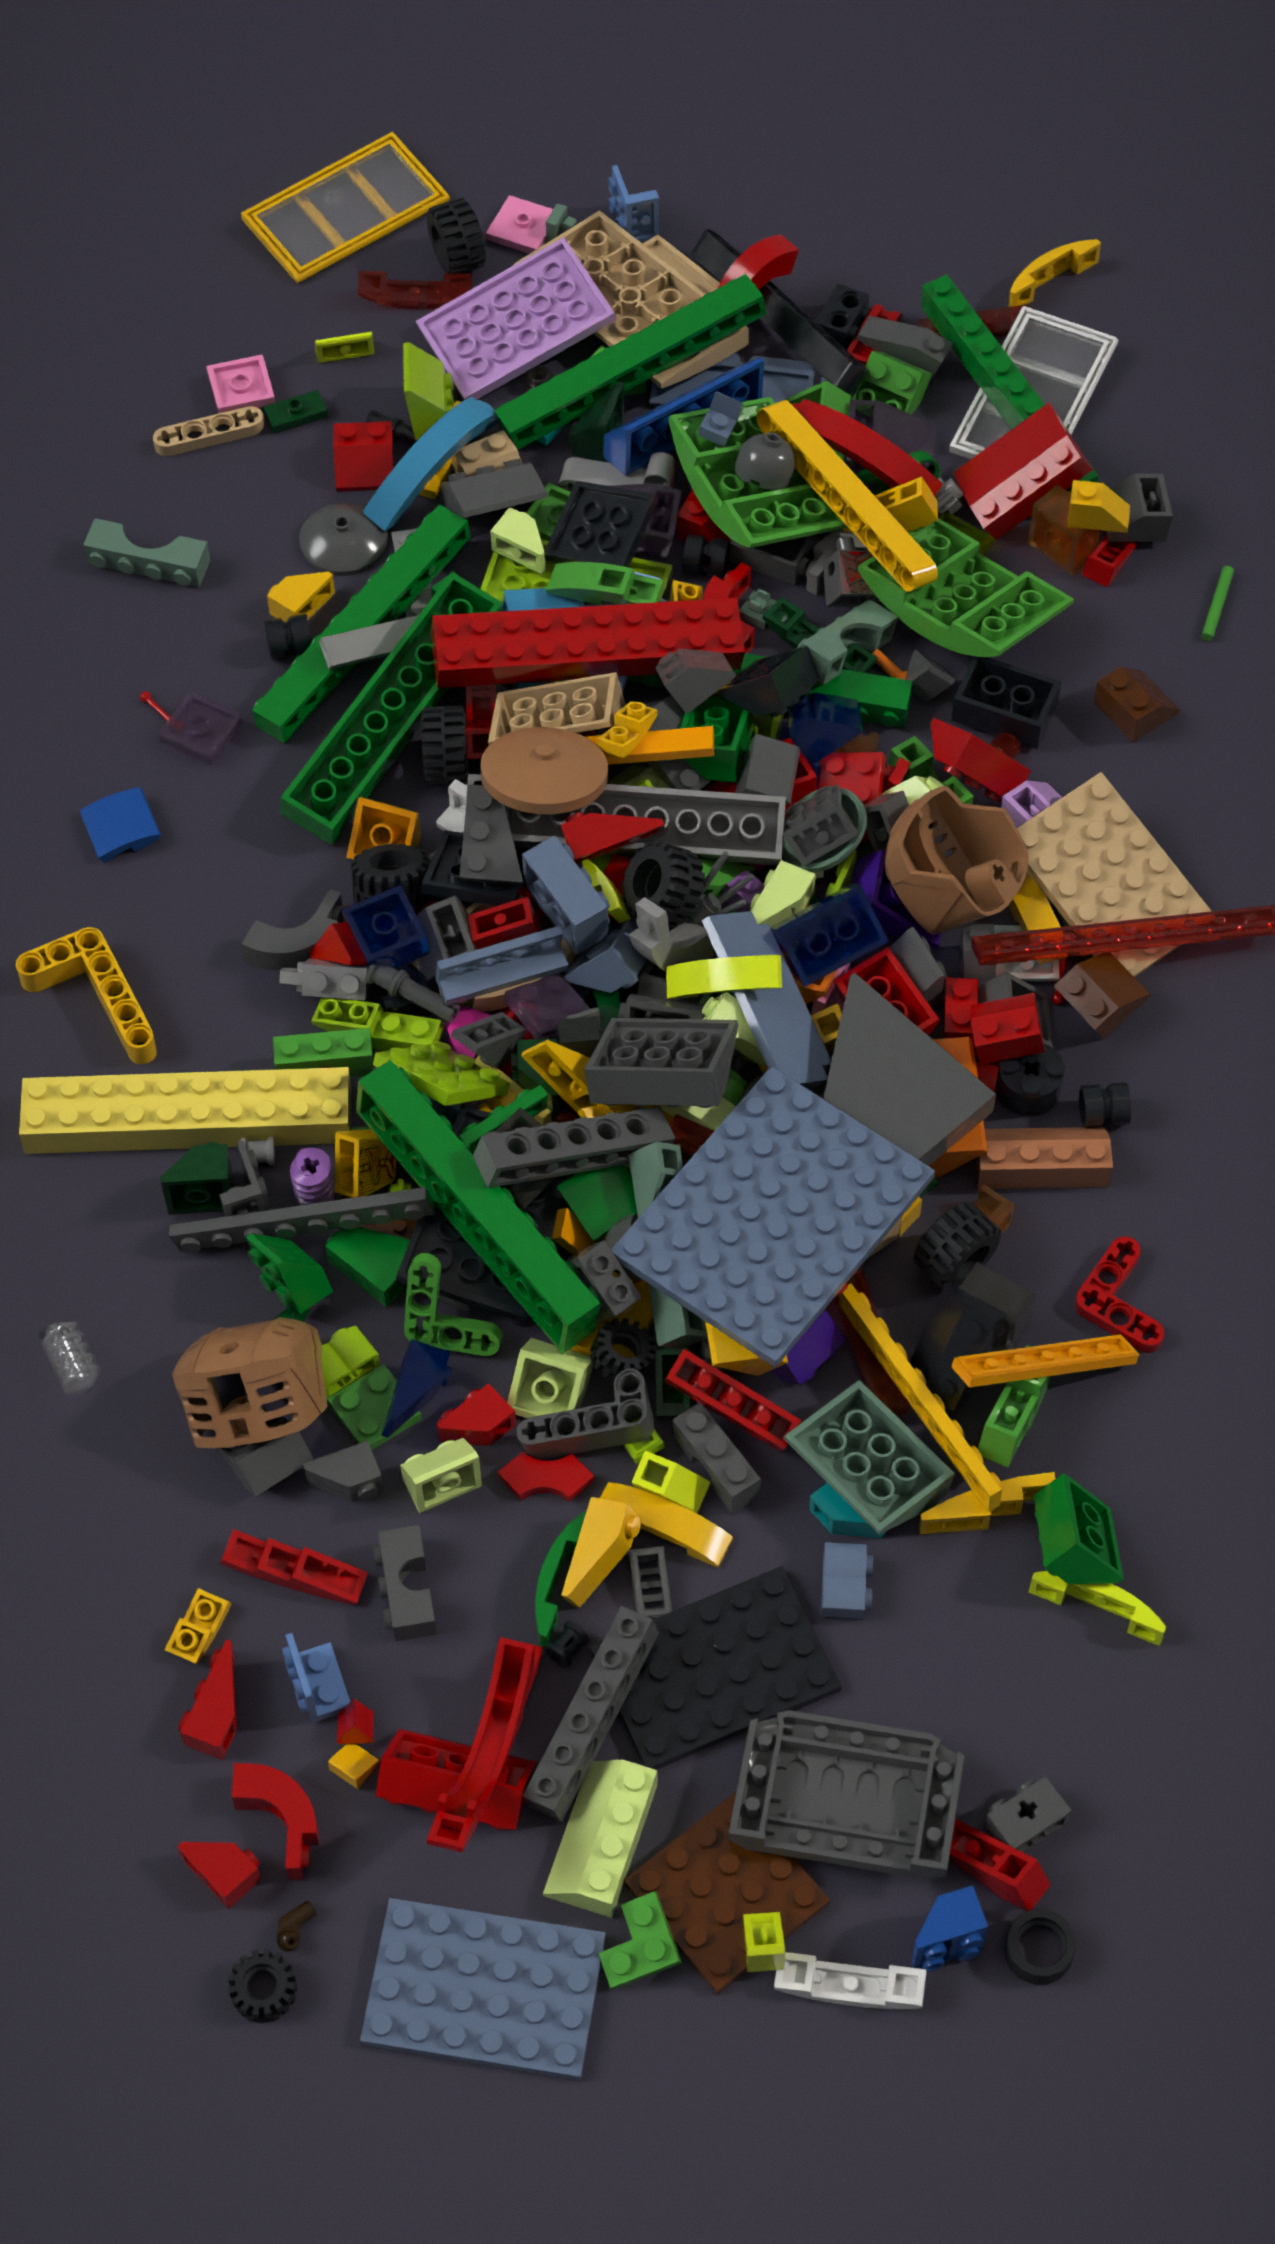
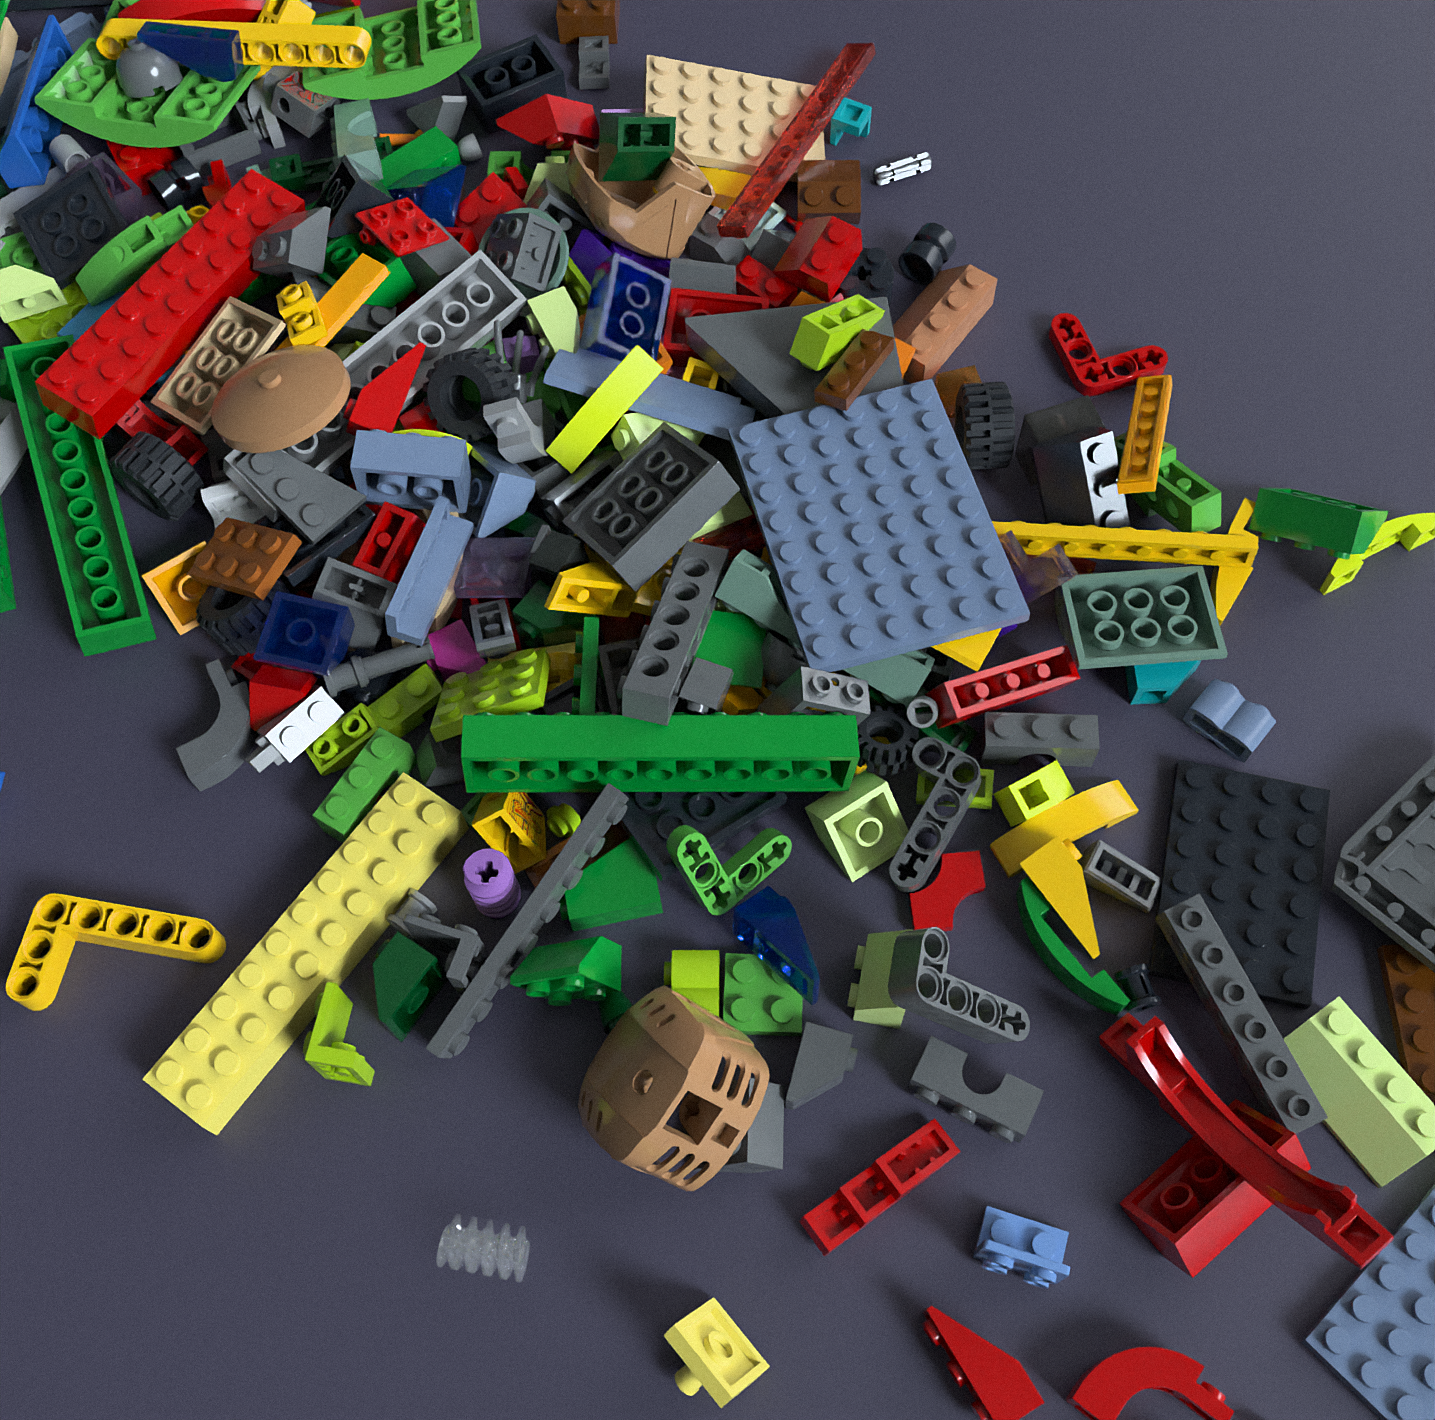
camera: 50 degrees left, 5 degrees up
(105, 1532) = (714, 1354): none -> light yellow tile
(133, 1163) = (325, 1045): none -> lime bracket
(199, 1627) = (877, 1327): yellow slope -> none
(353, 1764) = (1132, 1273): yellow slope -> none
(355, 1724) = (1092, 1244): red slope -> none
(419, 847) = (244, 558): none -> dark orange plate
(453, 1518) = (924, 988): none -> dark grey beam
(479, 1419) = (851, 907): red slope -> none
(548, 1198) = (706, 687): none -> dark grey slope
(658, 1363) = (924, 718): none -> light grey hinge
(720, 419) = (73, 66): sand blue slope -> none
(763, 732) = (400, 227): none -> red hinge
(809, 479) = (202, 49): none -> clear blue slope
(839, 1357) = (1040, 573): none -> plate
(895, 1113) = (854, 369): none -> reddish brown plate
(921, 1077) = (830, 331): none -> lime slope
(922, 718) = (469, 148): none -> light grey hinge
(982, 825) = (635, 145): none -> dark green slope
(1093, 741) = (594, 62): none -> dark grey slope
(1186, 1032) = (902, 168): none -> axle
(1191, 960) = (850, 118): none -> teal panel

